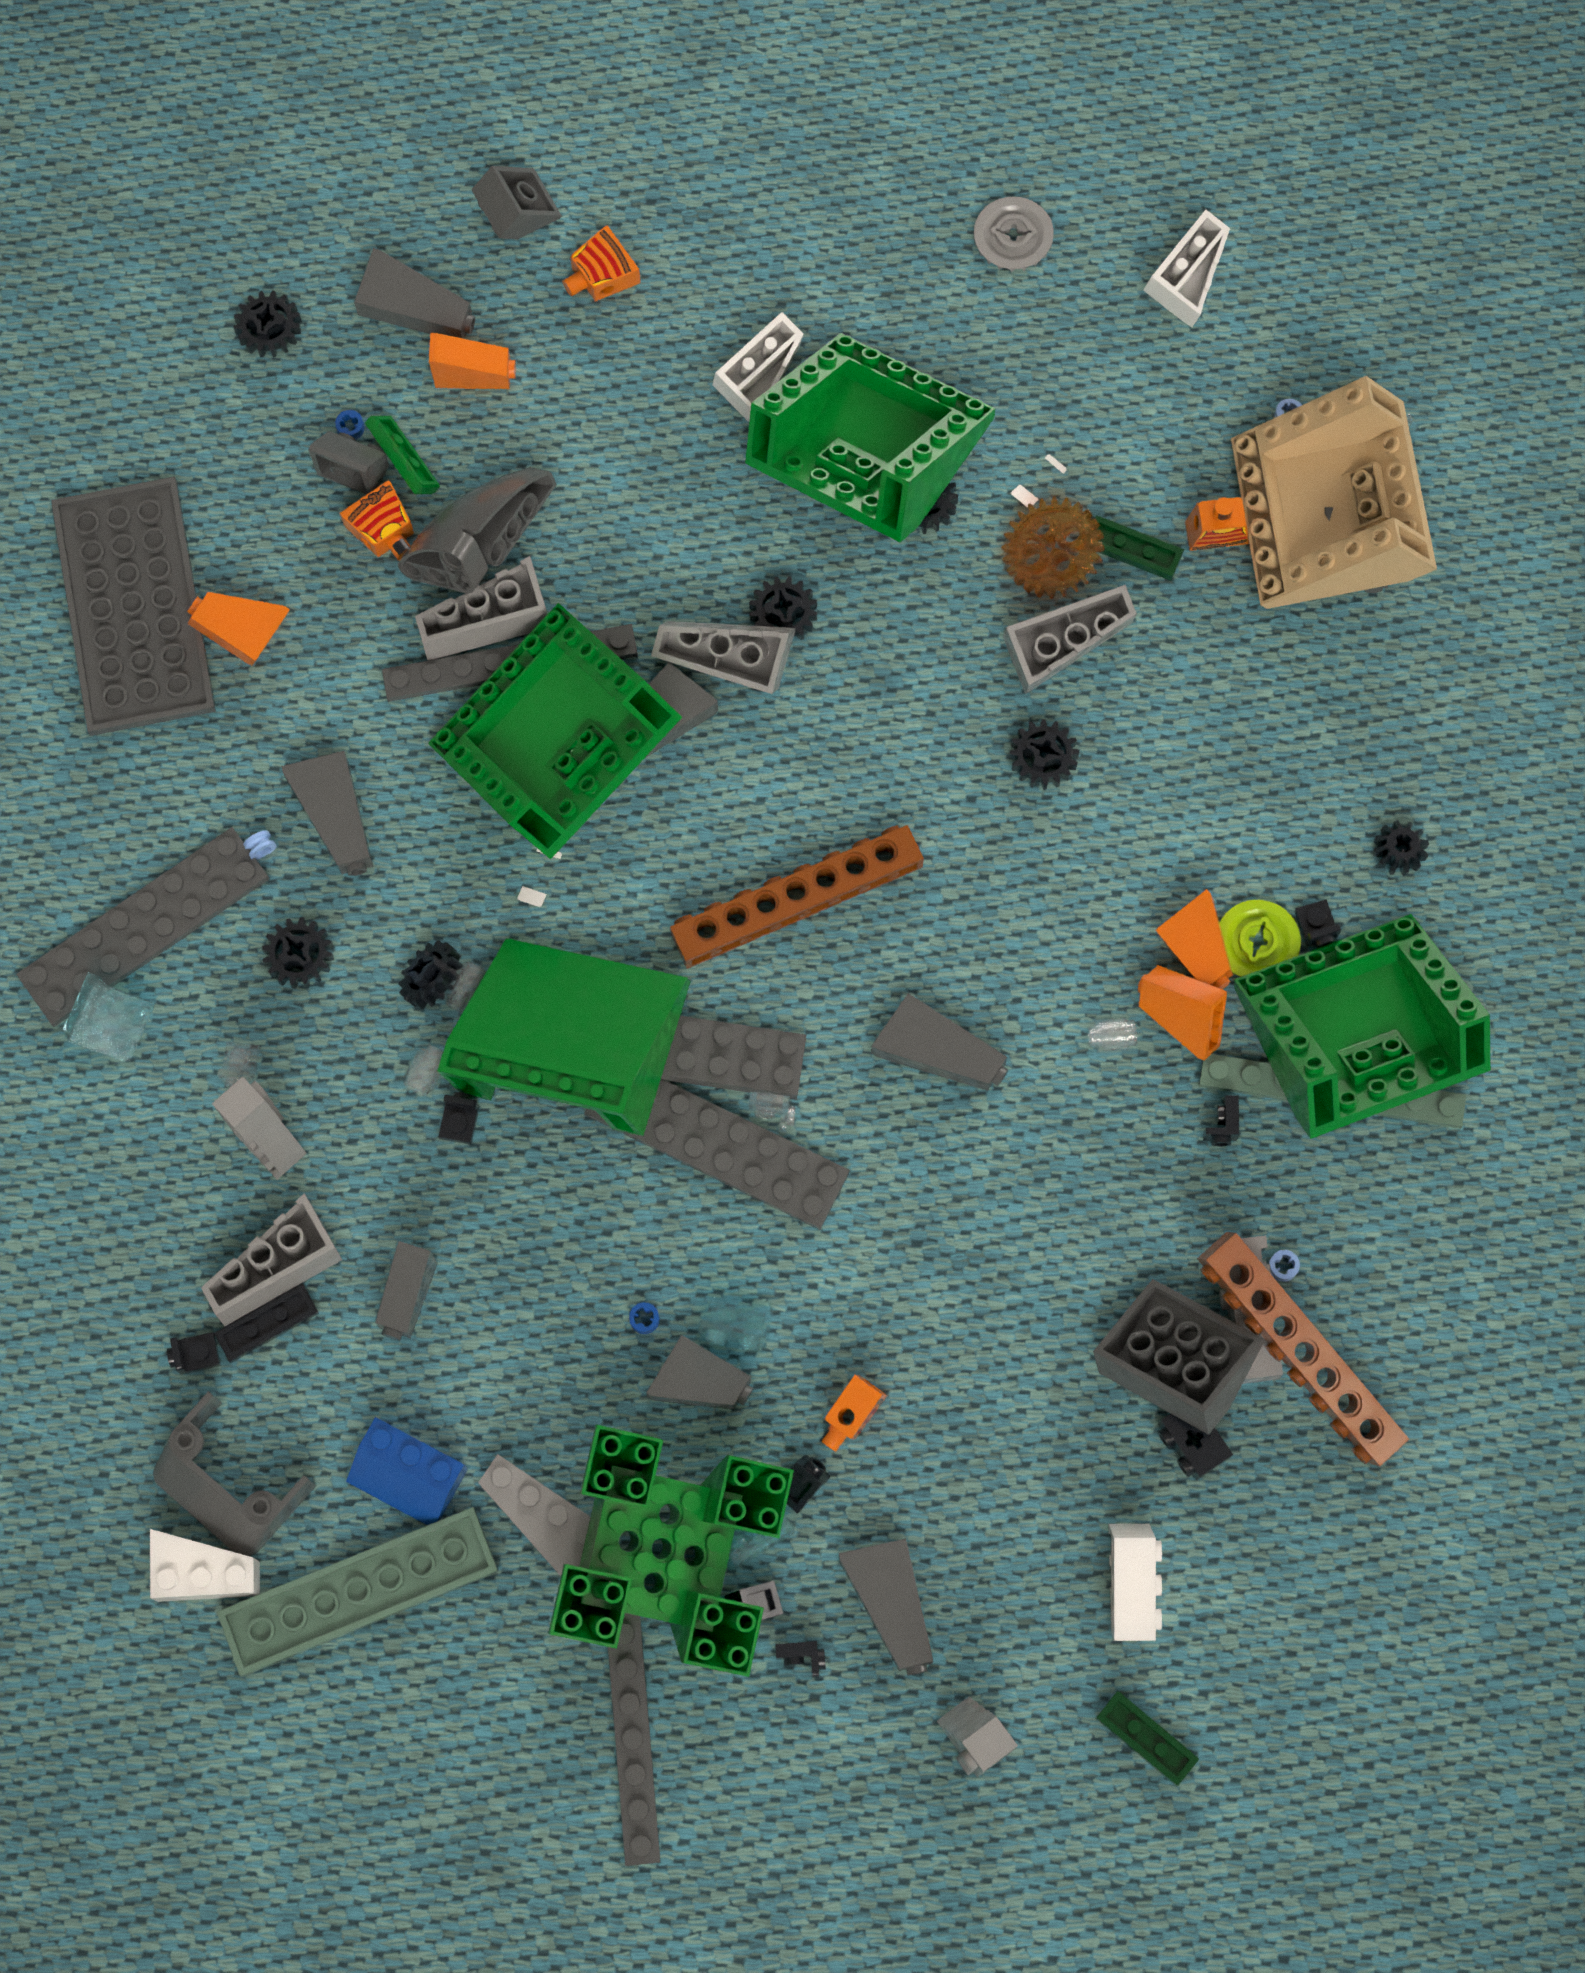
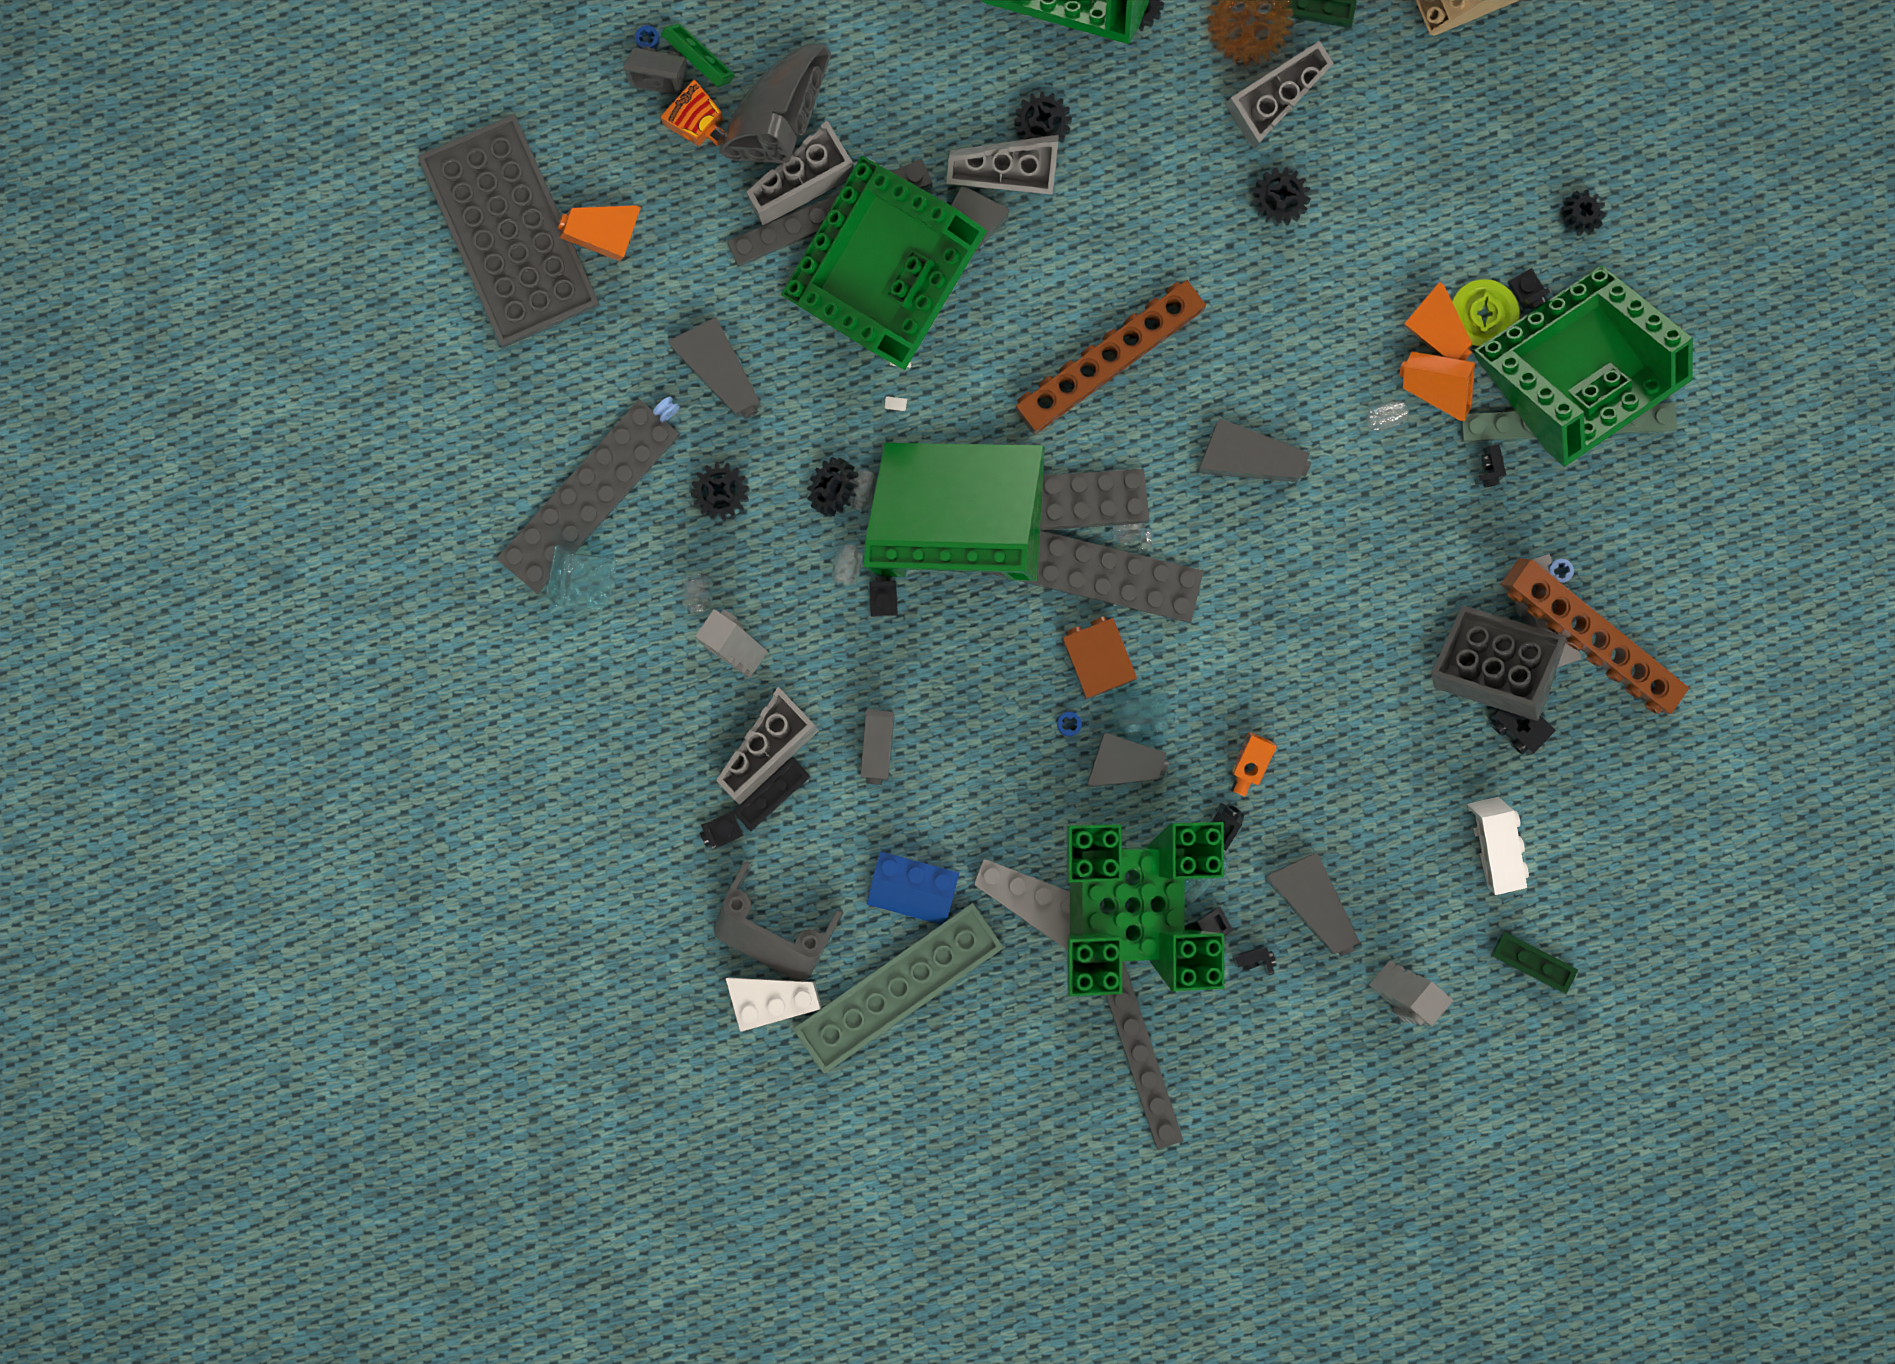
camera: 15 degrees left, 10 degrees up
(697, 1245) = (1099, 657): none -> dark orange panel

